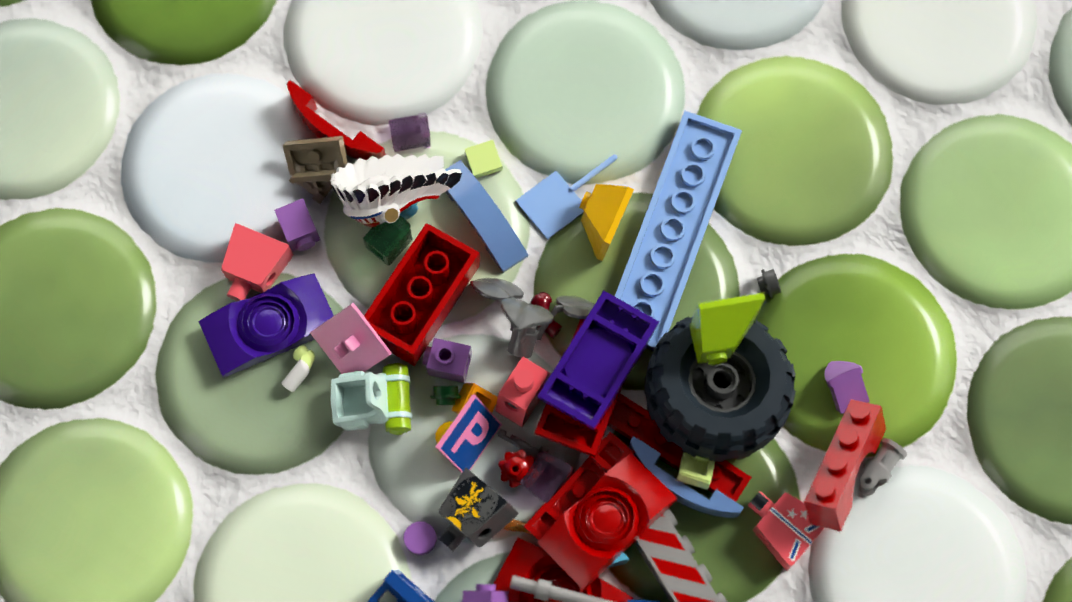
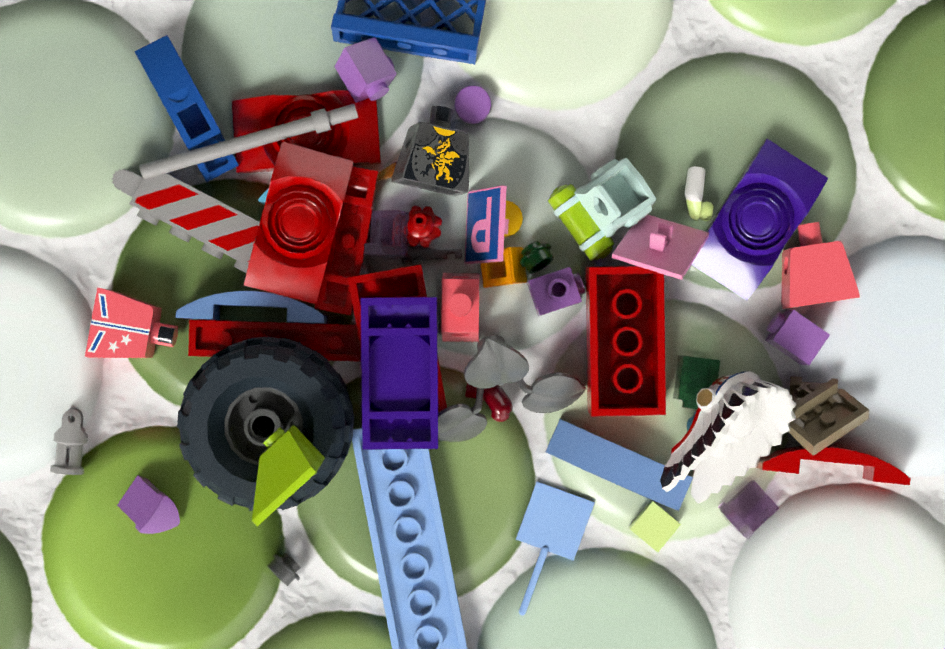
camera: 150 degrees right, 15 degrees up
(603, 214) = (489, 536): yellow slope -> none
(695, 471) = (242, 324): yellowish green tile -> none
(833, 486) = (97, 401): arch -> none

